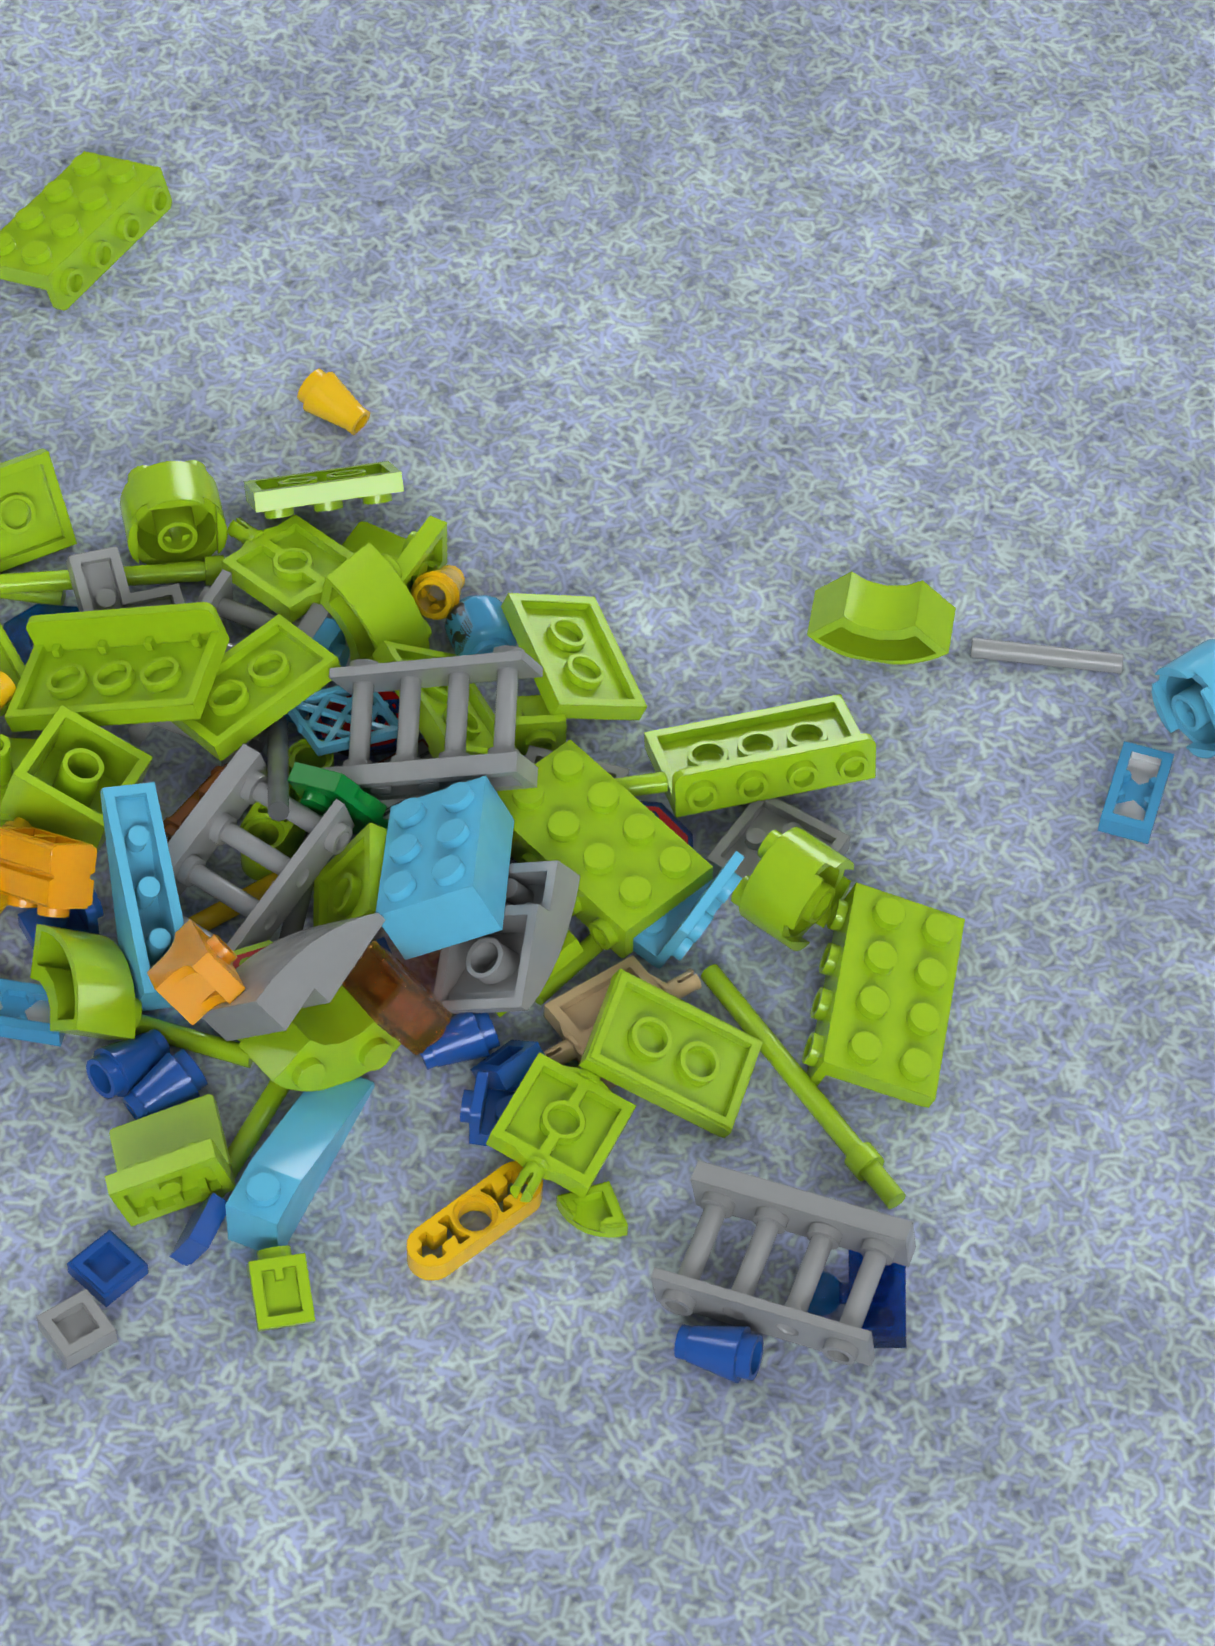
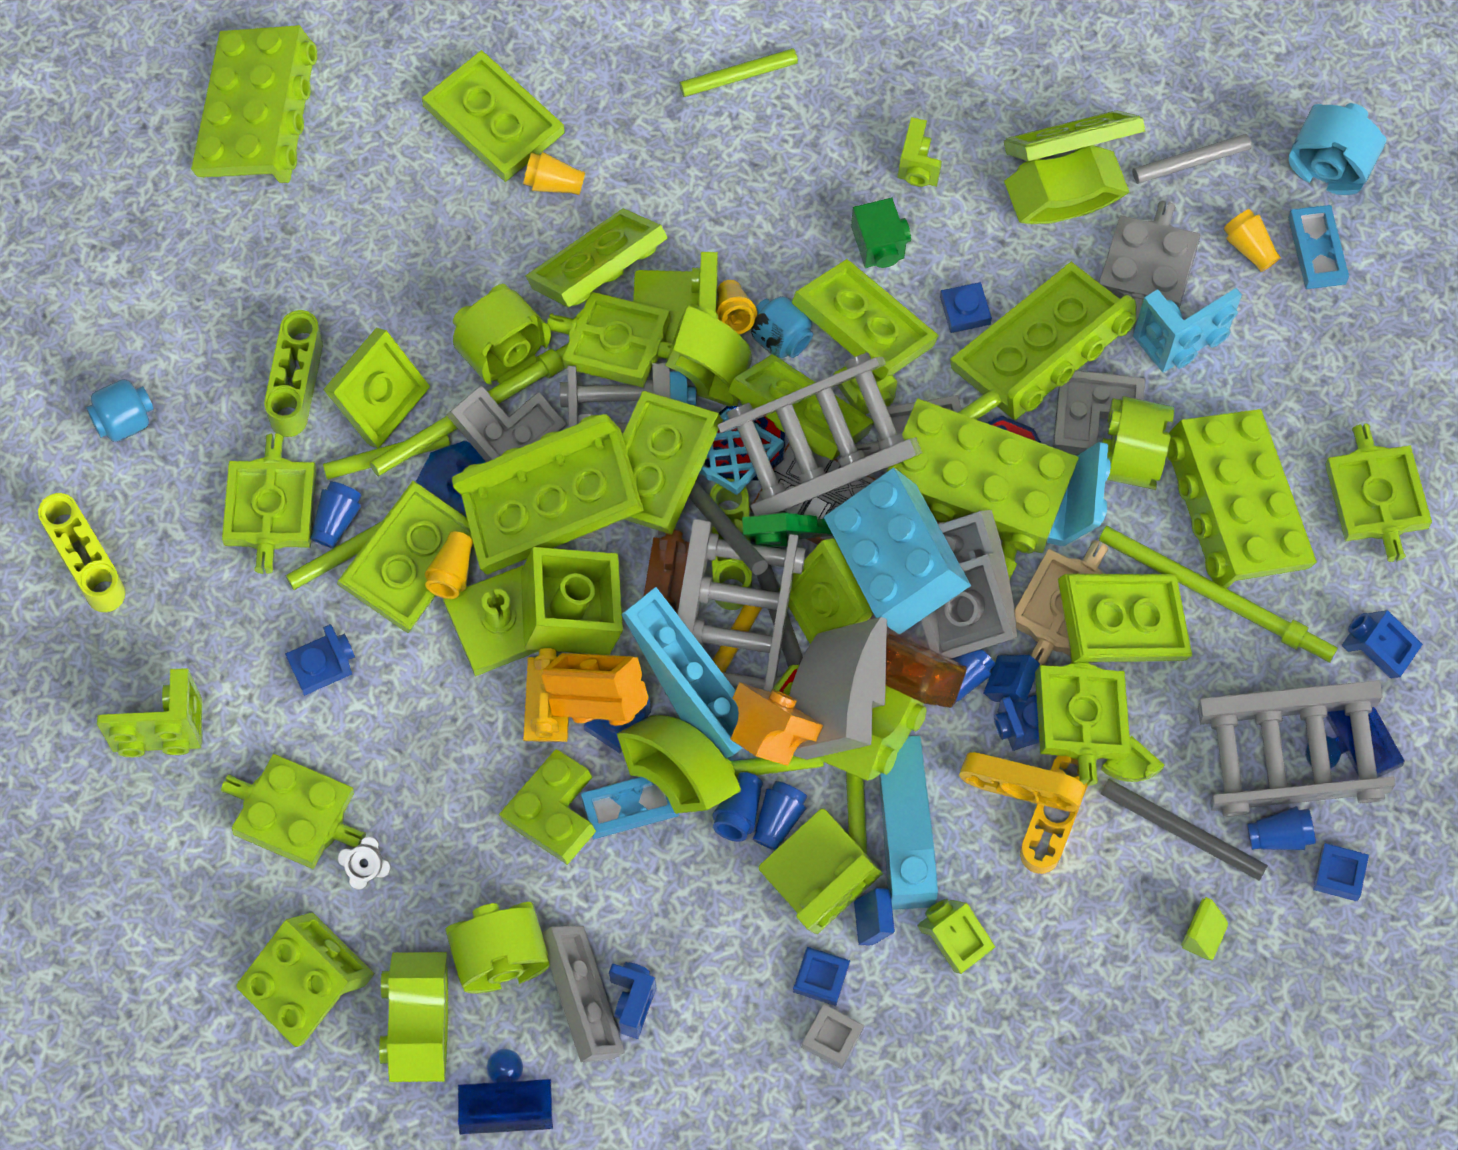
camera: 25 degrees left, 15 degrees up
(308, 325) = (493, 115): none -> lime plate
(449, 1164) = (1022, 781): none -> yellow beam
(565, 1409) = (1205, 930): none -> lime slope
(596, 387) = (738, 72): none -> lime bar
(610, 1303) = (1184, 829): none -> dark grey bar
(646, 586) = (880, 233): none -> green brick
(697, 695) = (965, 307): none -> blue plate
(733, 529) = (914, 161): none -> lime bracket
(761, 1421) = (1341, 872): none -> blue plate
(913, 569) = (1073, 135): none -> lime tile
(929, 806) = (1176, 341): none -> medium azure bracket
(933, 734) = (1150, 258): none -> light grey plate
(962, 1210) = (1383, 641): none -> blue bracket
(1051, 1059) = (1378, 493): none -> lime plate
(1062, 753) = (1251, 238): none -> yellow cone

